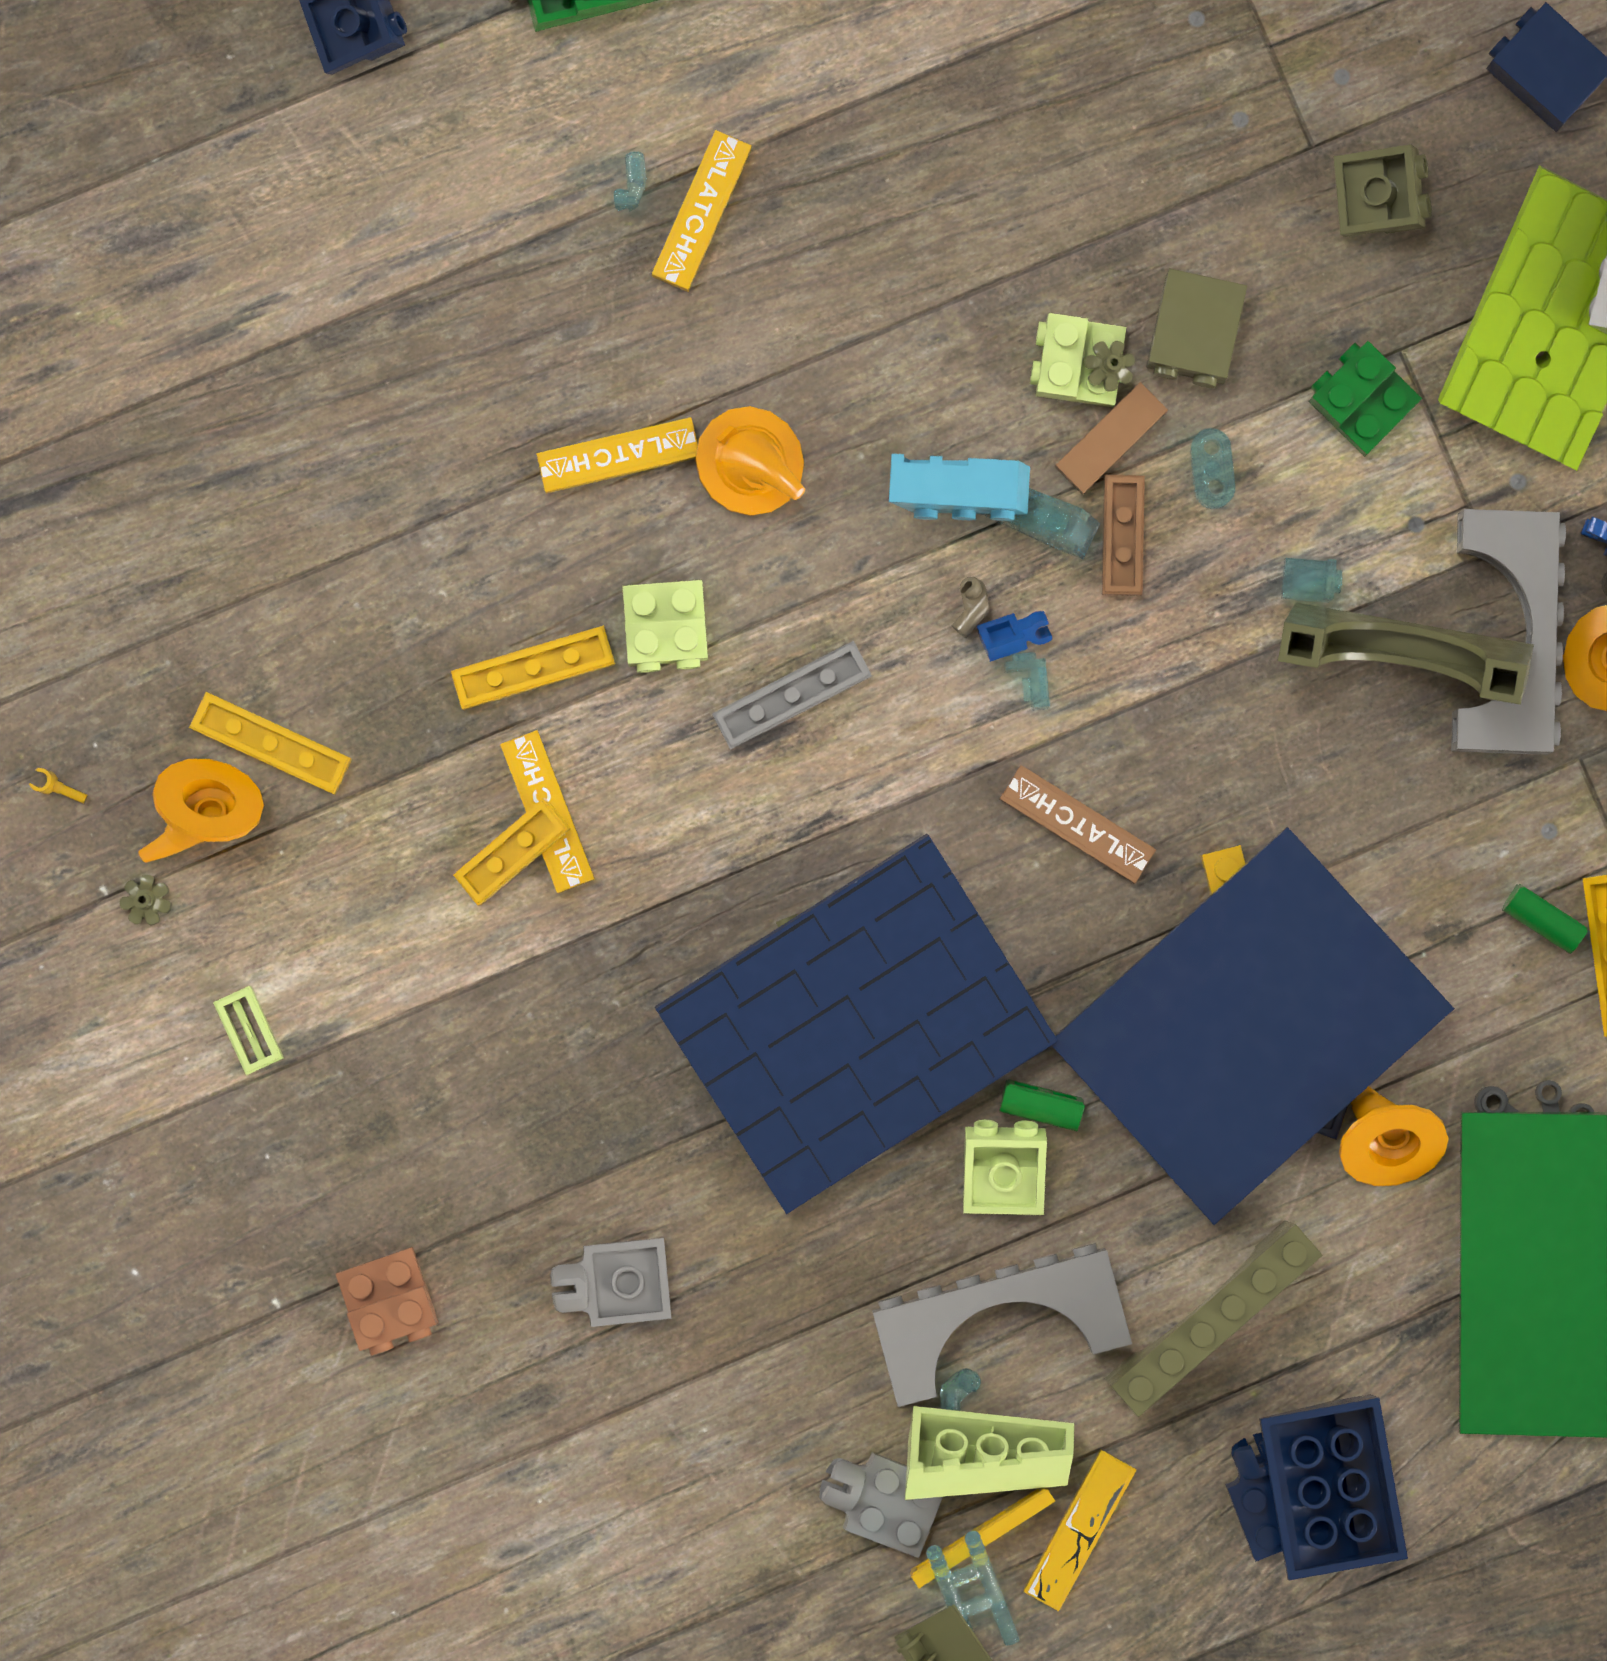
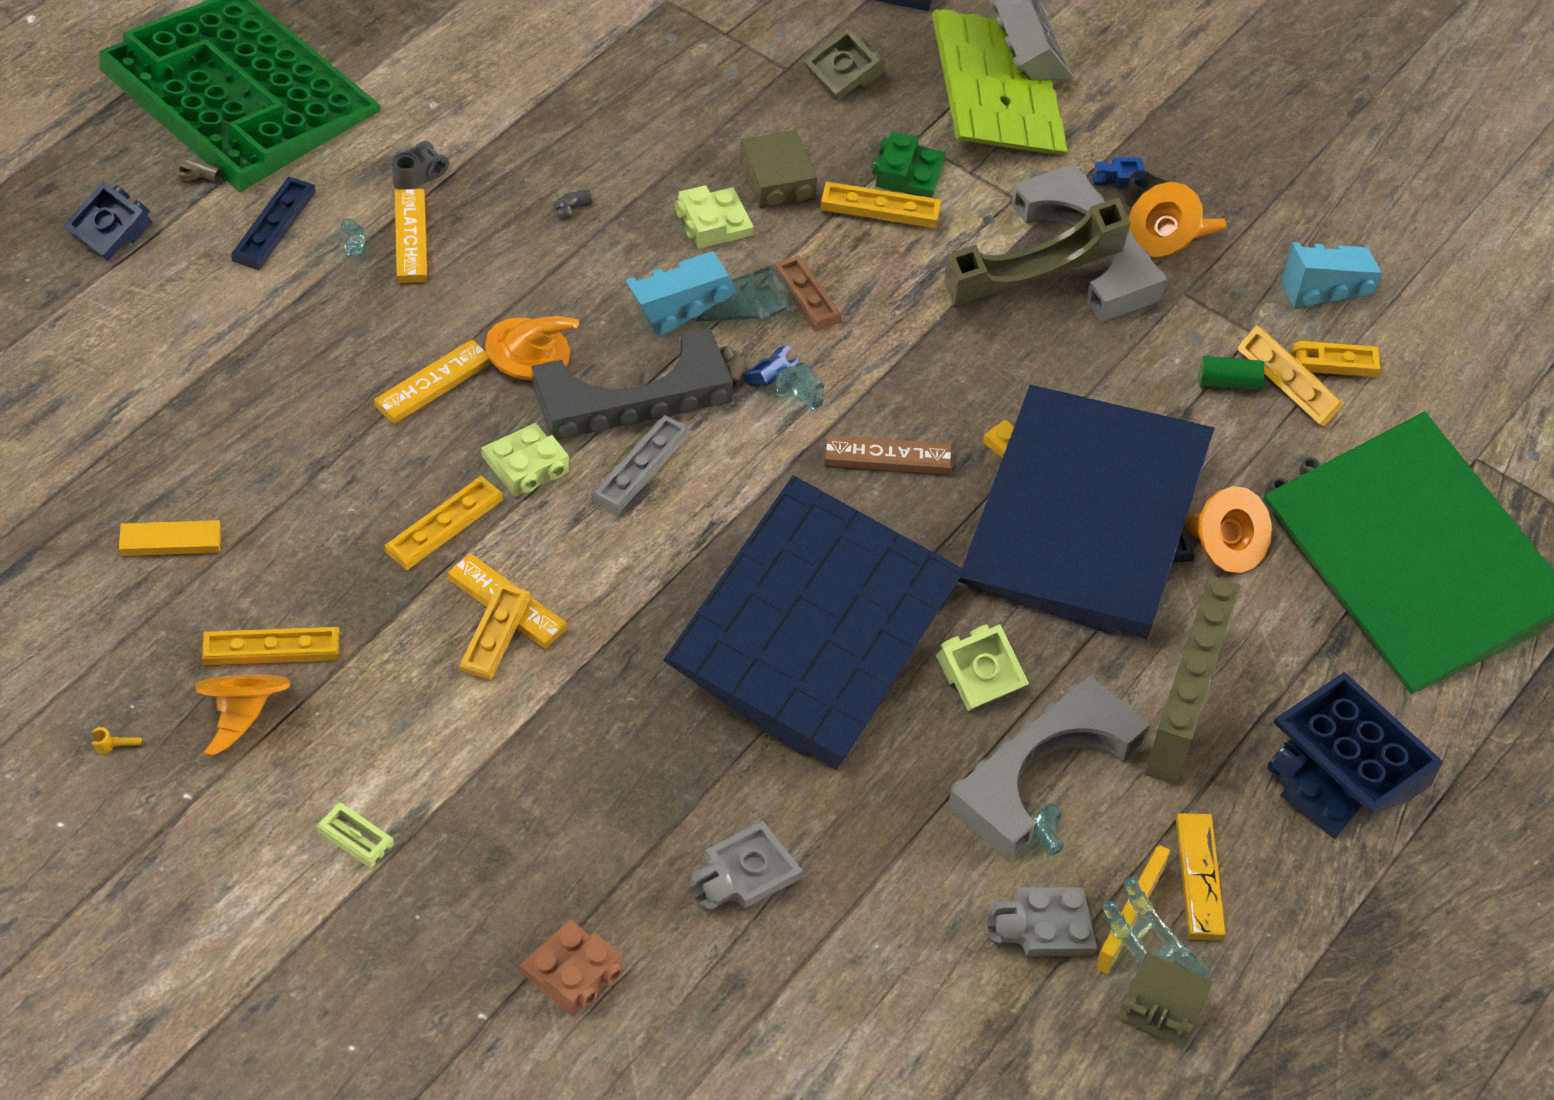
camera: 30 degrees left, 35 degrees down
(153, 904) = (225, 785): olive plant -> none
(226, 539) = (170, 538): none -> yellow tile
(550, 108) = (273, 223): none -> dark blue tile
(764, 102) = (417, 165): none -> dark grey piece
(913, 614) = (580, 408): none -> dark grey arch
(914, 250) = (570, 200): none -> dark grey arm
(984, 1453) = (1096, 843): yellowish green wedge -> none
(1042, 1105) = (964, 618): green brick -> none
(1104, 370) = (736, 202): olive plant -> none
(1111, 438) = (764, 242): medium nougat tile -> none
(1212, 468) = (839, 238): clear light blue plate -> none
(1290, 445) = (880, 204): none -> yellow plate
(1311, 580) = (935, 266): clear light blue bracket -> none

